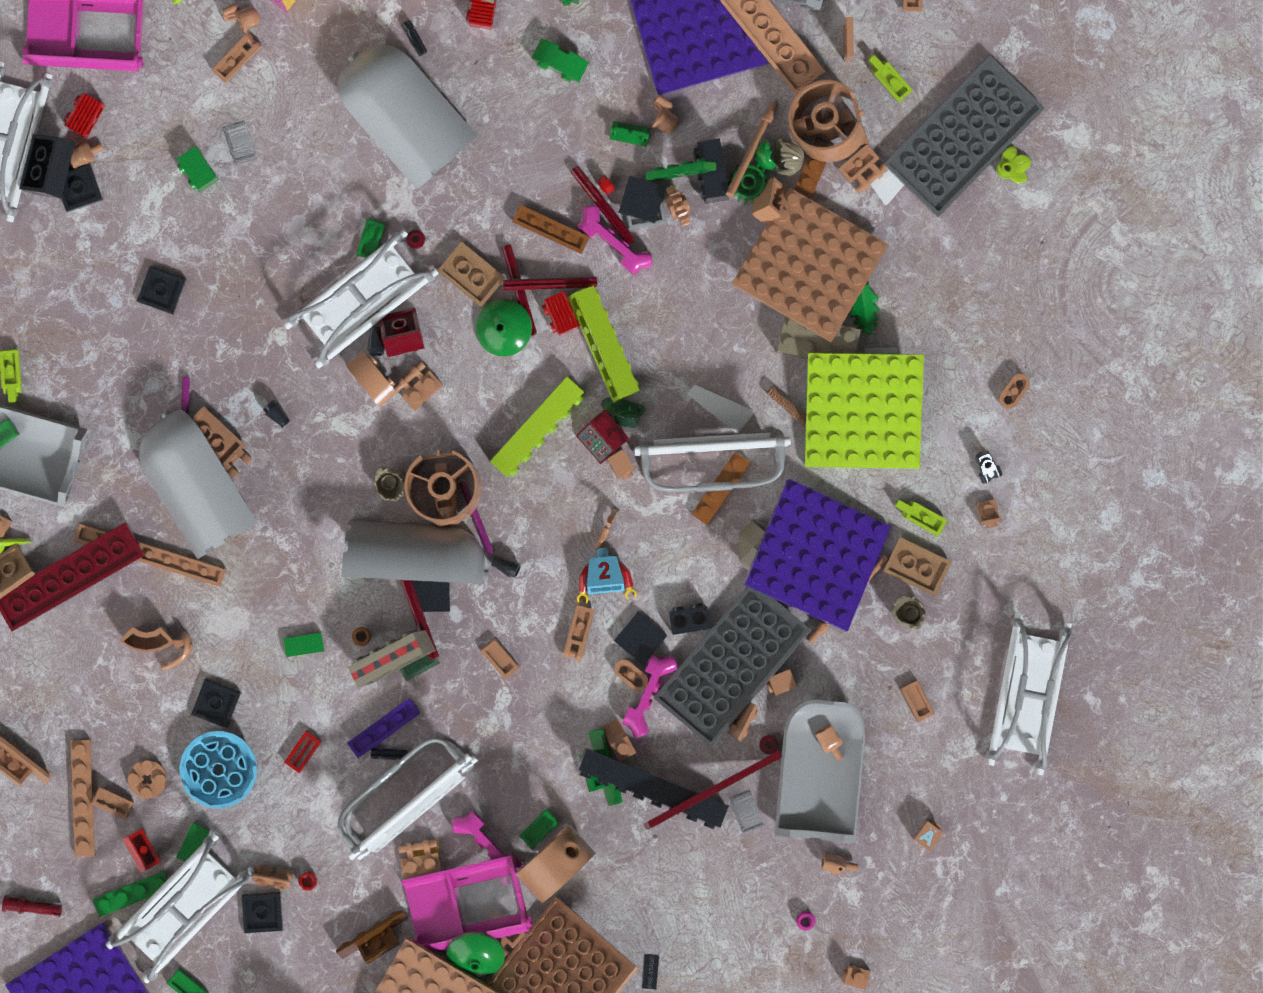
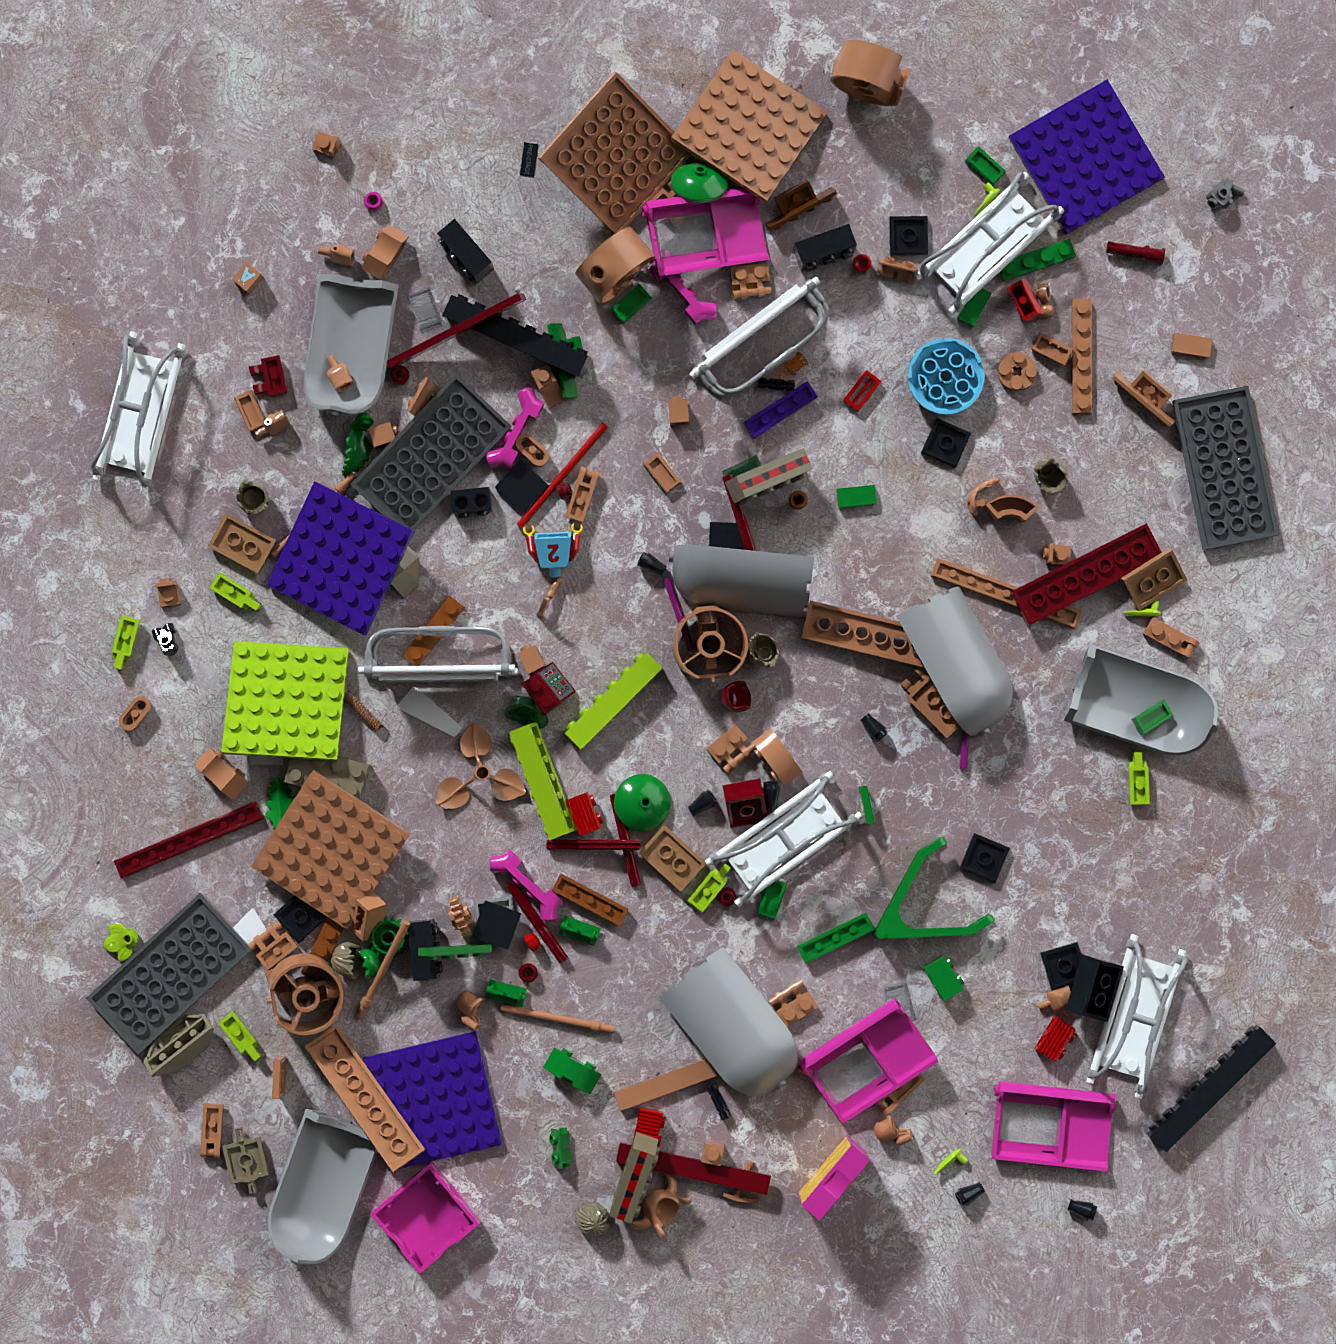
camera: 175 degrees left, 0 degrees up
(100, 595) = (1057, 554): none -> nougat bracket
(108, 673) = (1051, 476): none -> dark tan hair
(123, 858) = (1043, 295): none -> nougat plate
(178, 959) = (993, 193): none -> lime bar
(251, 220) = (892, 926): none -> green piece
(267, 84) = (875, 1050): none -> dark pink piece
(280, 336) = (866, 804): none -> green tile
(303, 499) = (850, 639): none -> nougat plate
(305, 204) = (835, 937): none -> green plate
(342, 132) = (795, 1009): none -> nougat plate
(345, 893) = (825, 248): none -> black brick
(369, 775) = (796, 363): none -> clear orange bush
(414, 436) = (736, 696): none -> dark red hair
(433, 246) = (709, 888): none -> lime hinge
(443, 331) = (703, 802): none -> black cone
(468, 52) = (664, 1084): none -> nougat tile
(486, 721) = (678, 411): none -> nougat brick
(539, 105) = (594, 1025): none -> nougat bar
(560, 198) = (579, 930): none -> green hinge
(597, 635) = (564, 490): none -> dark red plate
(600, 651) = (562, 475): none -> red piece
(608, 148) = (528, 979): none -> dark red plate
(640, 339) = (507, 783): none -> nougat plant
(709, 872) = (464, 251): none -> black brick
(790, 868) = (384, 252): none -> nougat brick
(806, 672) = (357, 444): none -> green plant
(838, 197) = (299, 918): none -> black tile
(892, 688) = (273, 424): none -> nougat piece
(895, 736) = (273, 375): none -> dark red plate
(923, 335) = (221, 773): none -> nougat brick
(949, 66) = (179, 1045): none -> dark tan wedge
(953, 269) = (188, 839): none -> dark red tile
(1028, 463) = (125, 640): none -> lime hinge

